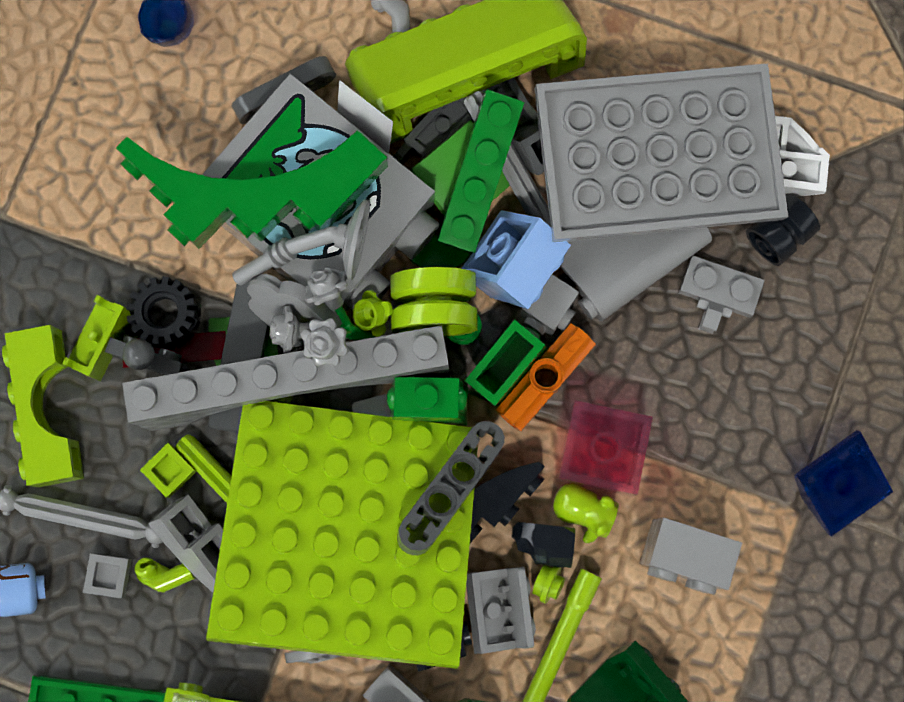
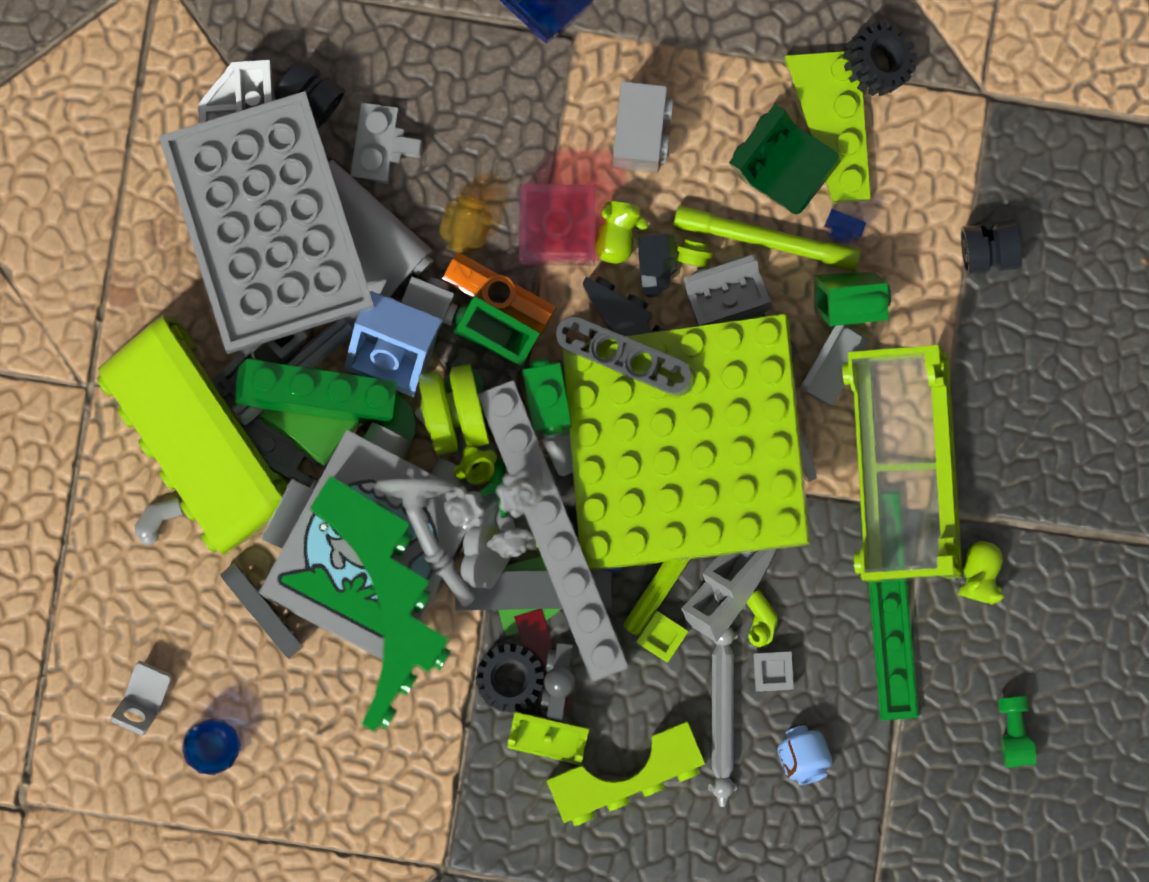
camera: 100 degrees left, 5 degrees up
(622, 358) = (465, 224): none -> clear yellow head

